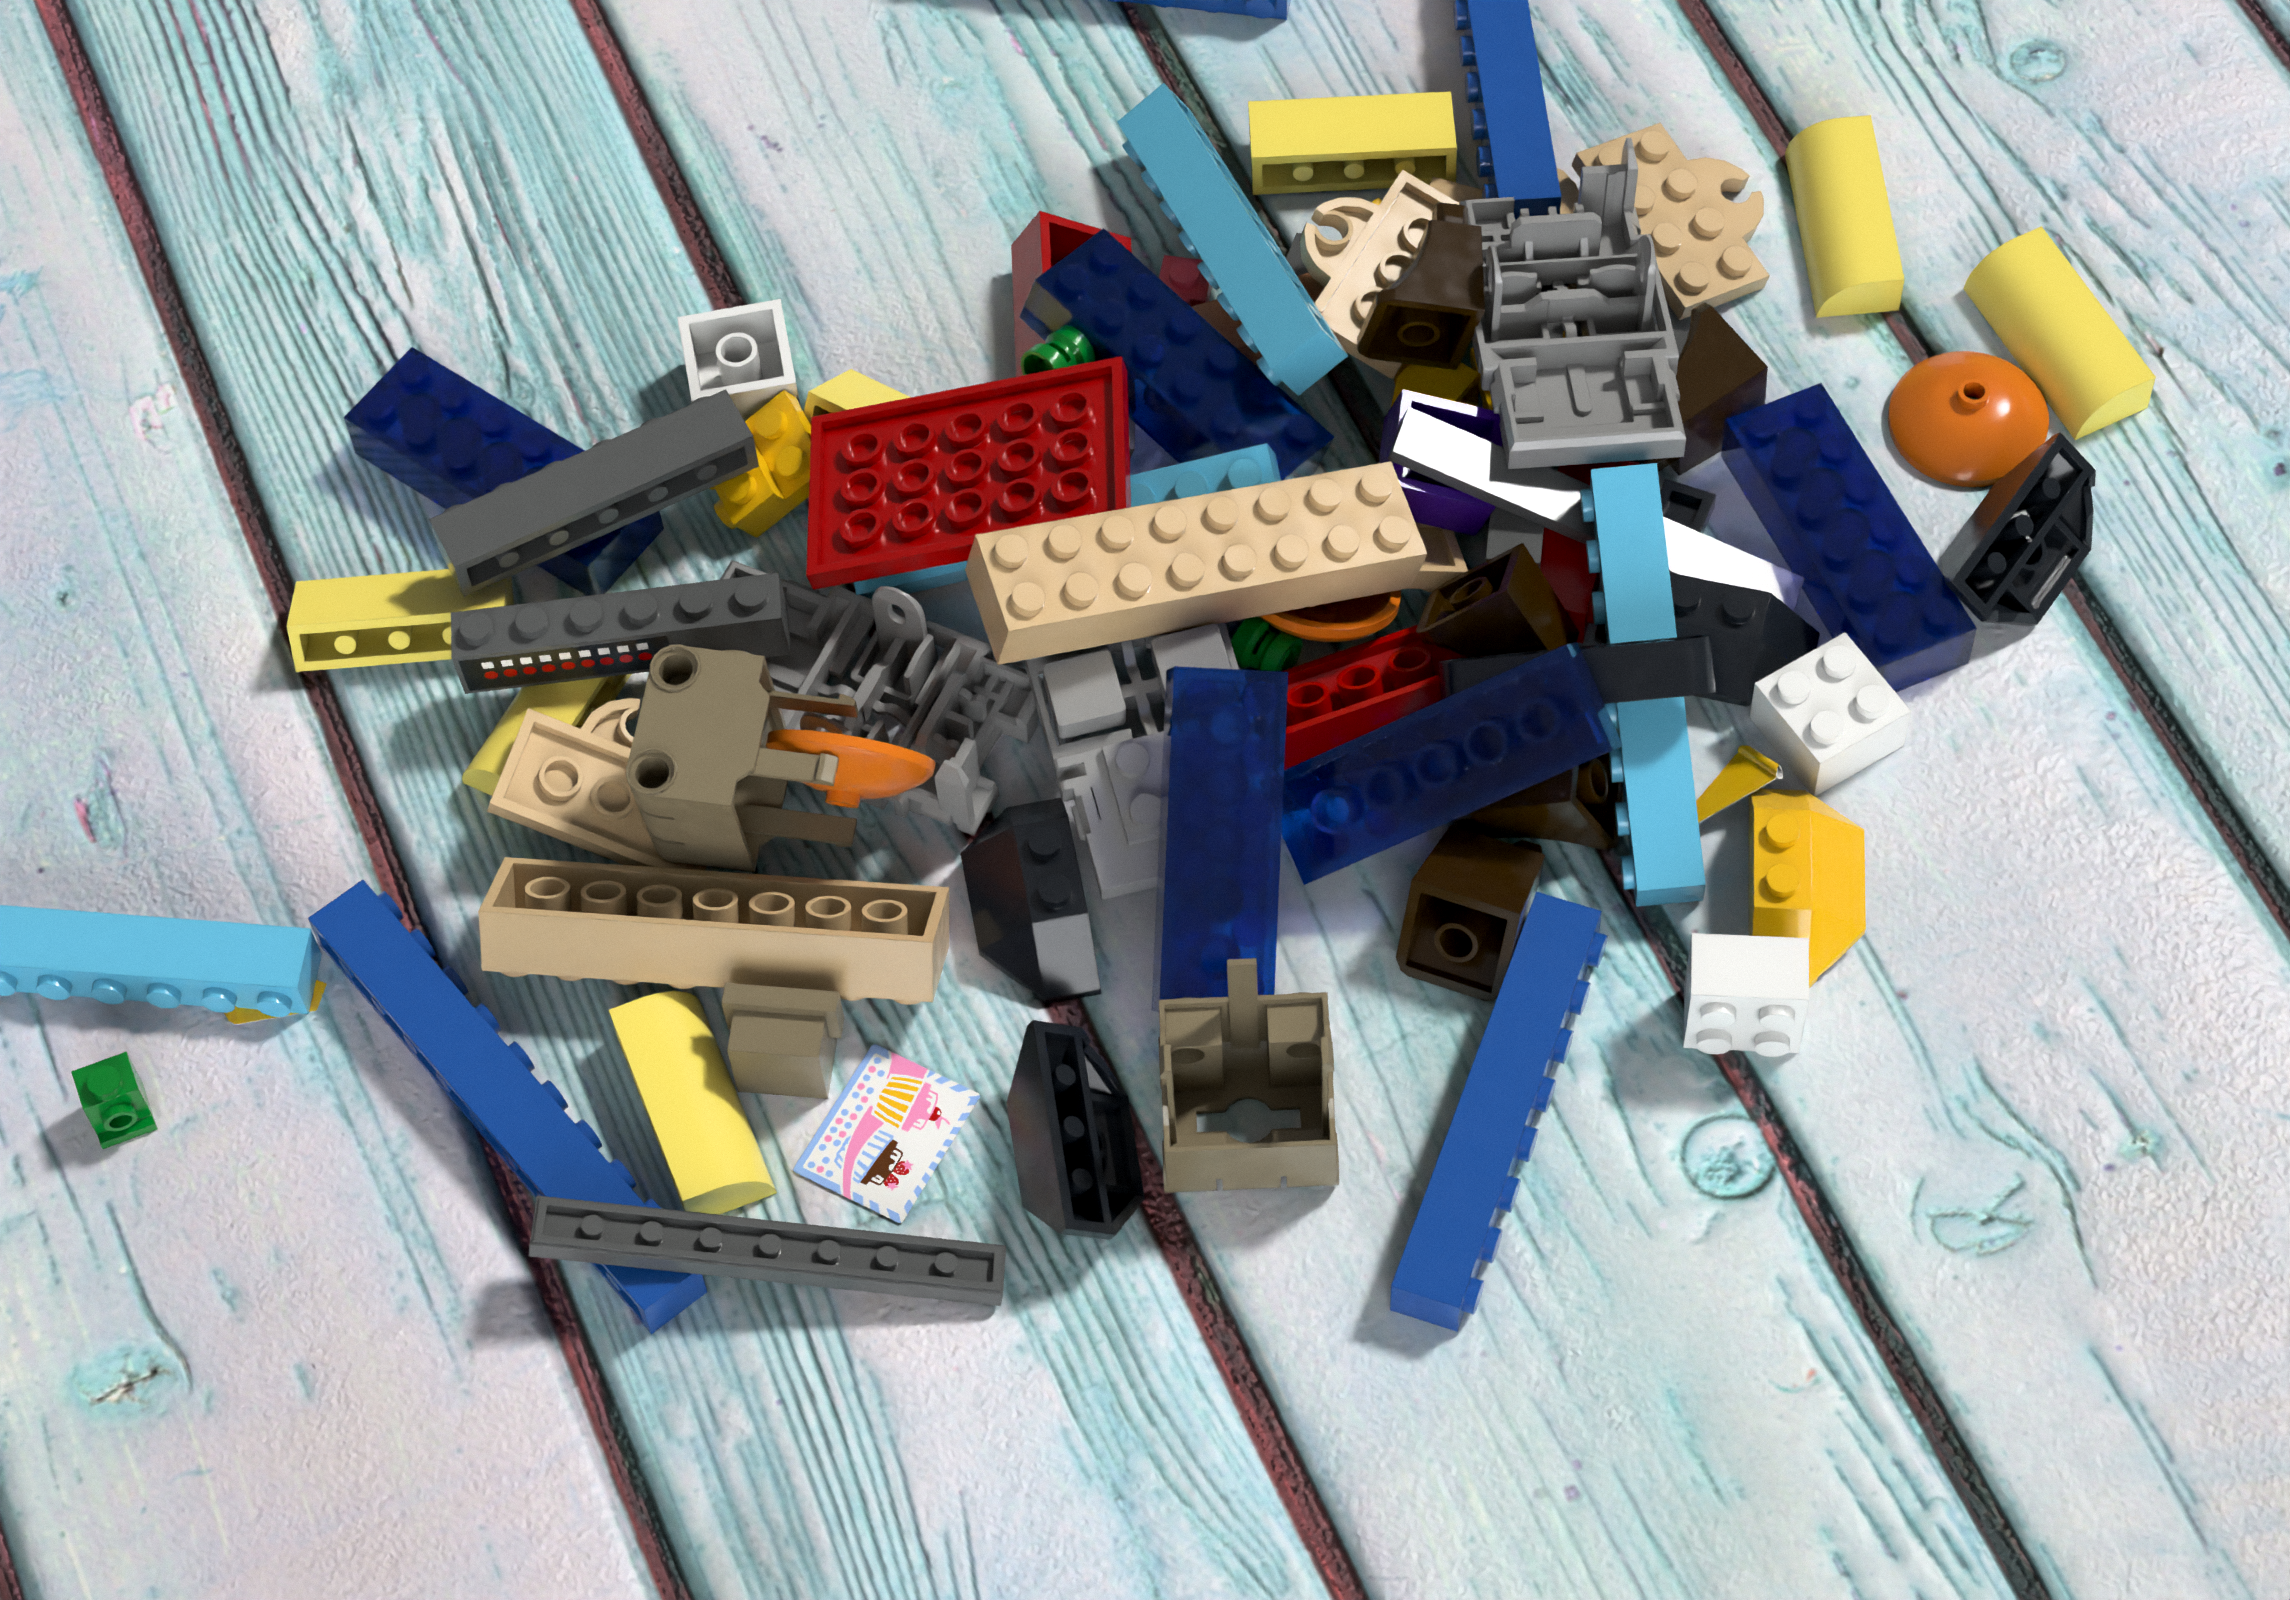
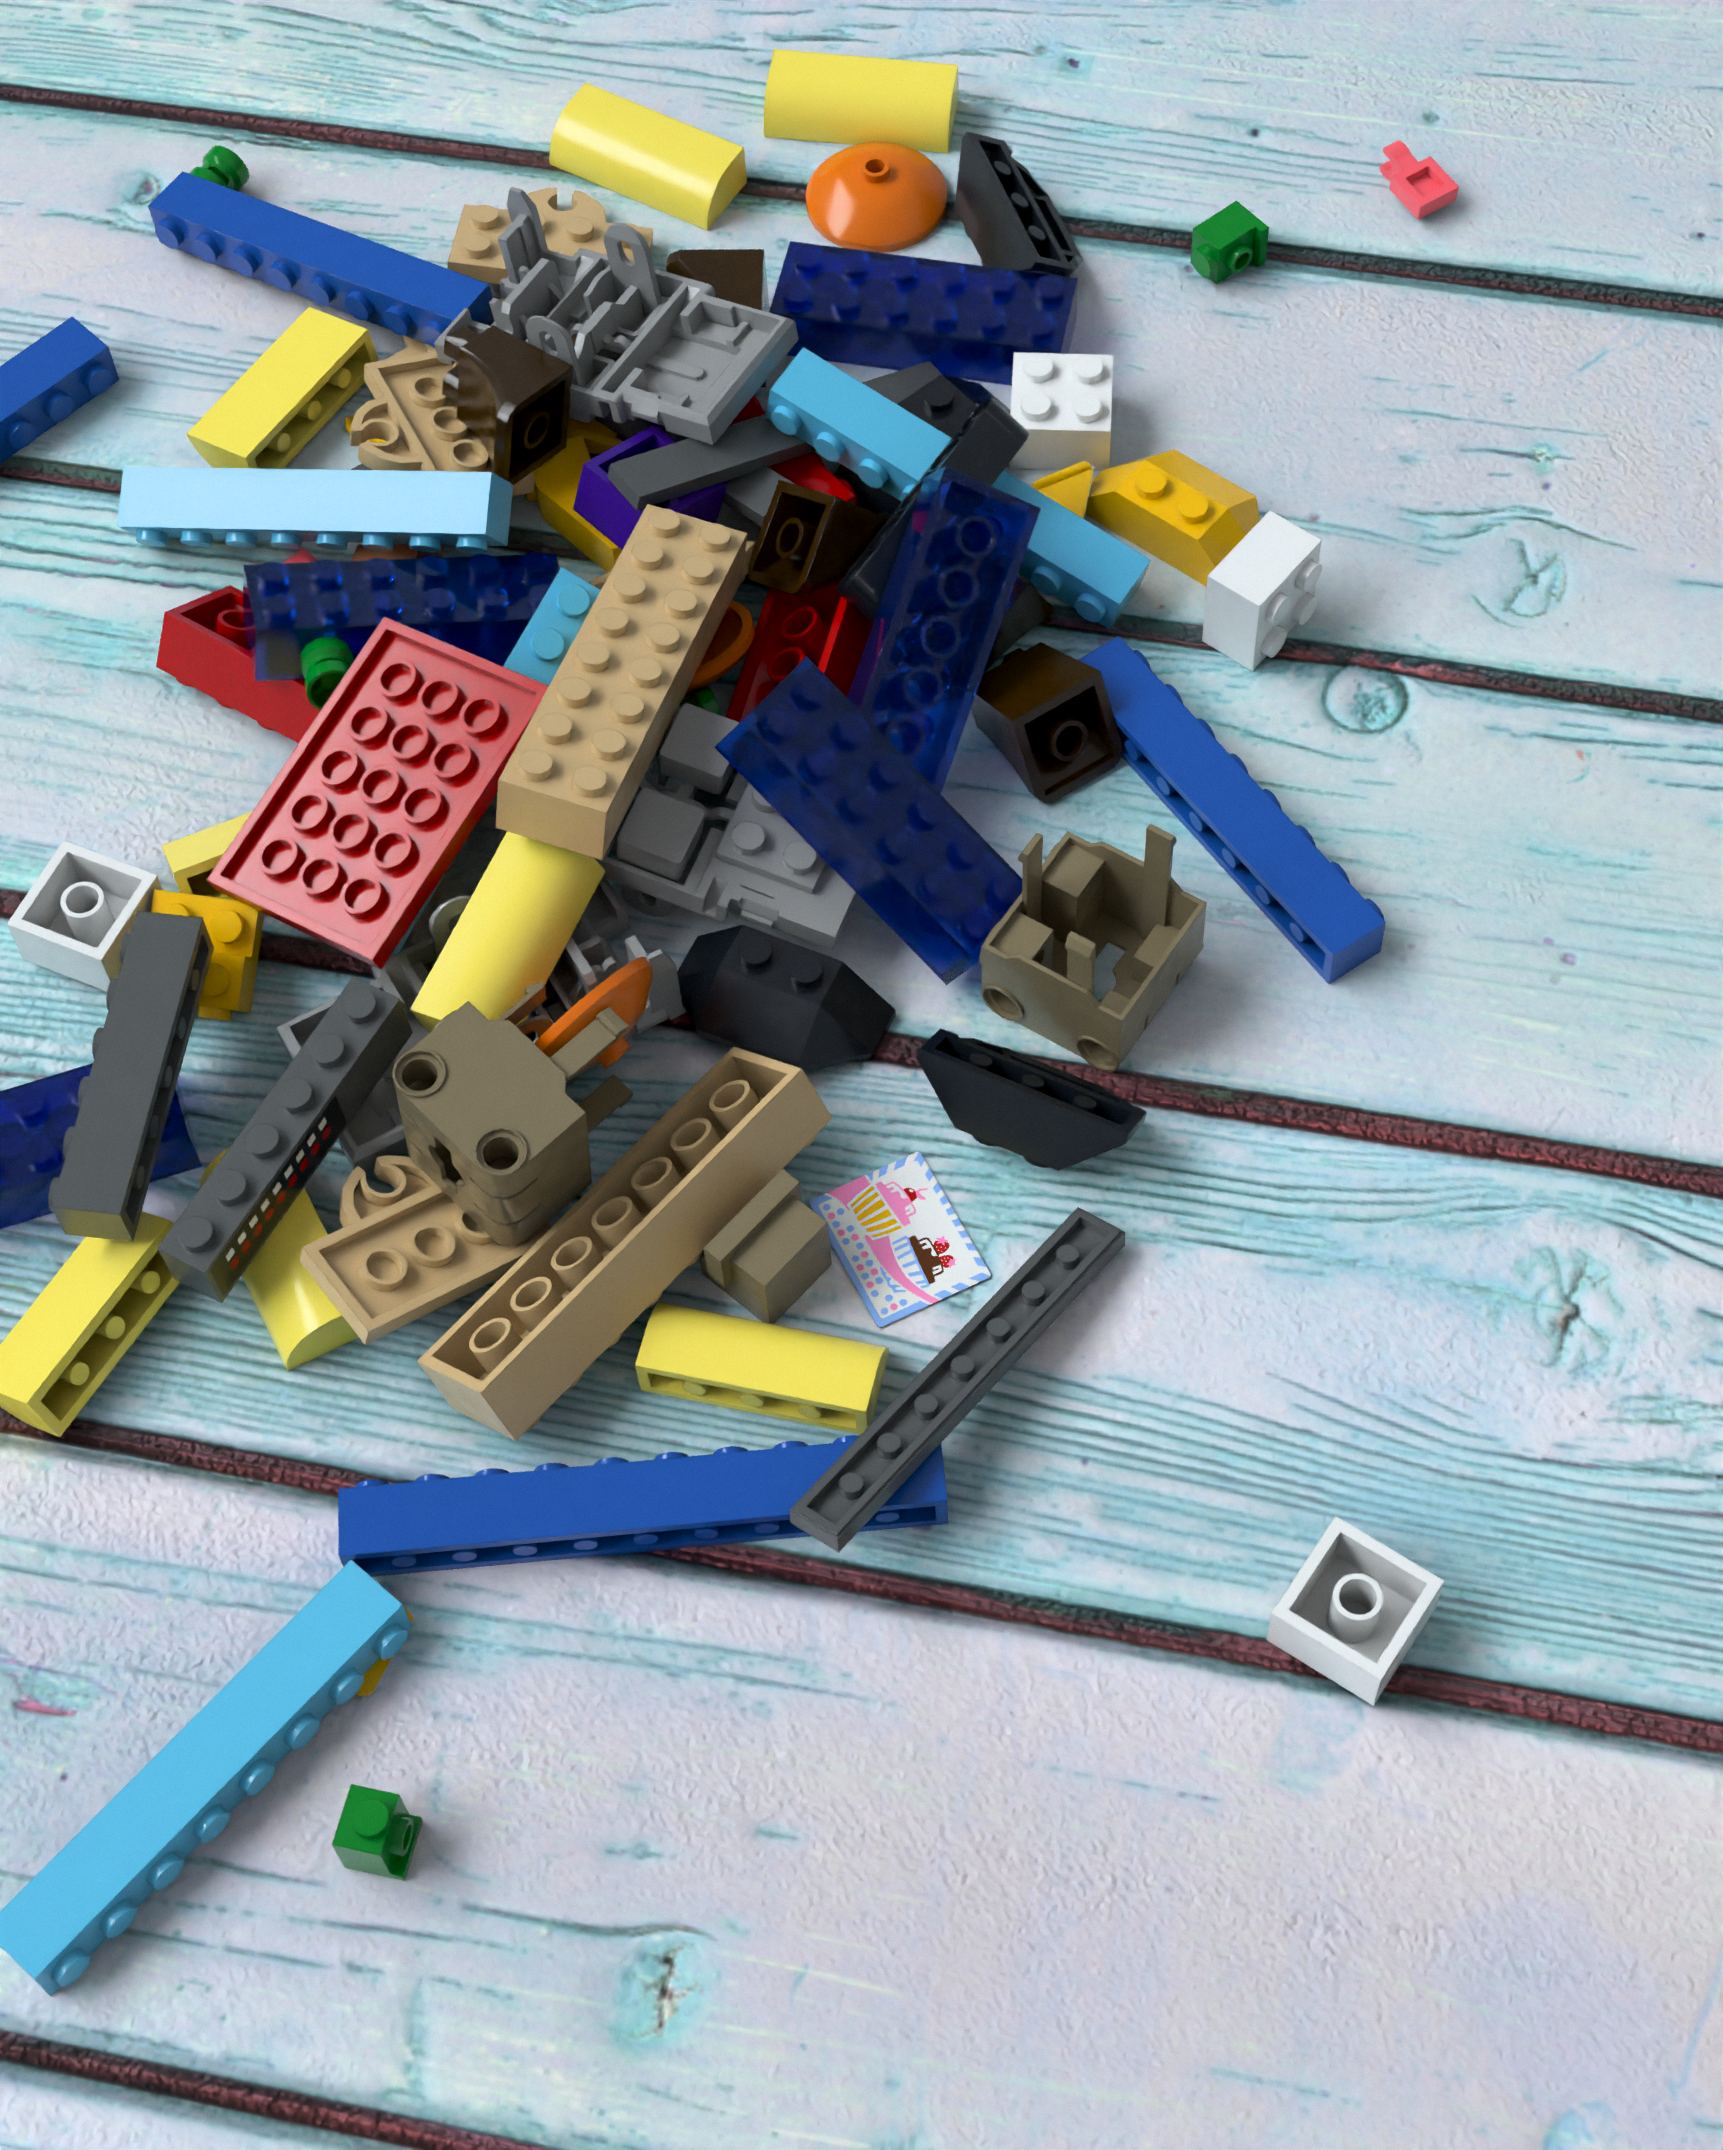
camera: 55 degrees left, 0 degrees up
(898, 656) = (509, 929): none -> light yellow brick
(2150, 725) = (1228, 243): none -> green brick

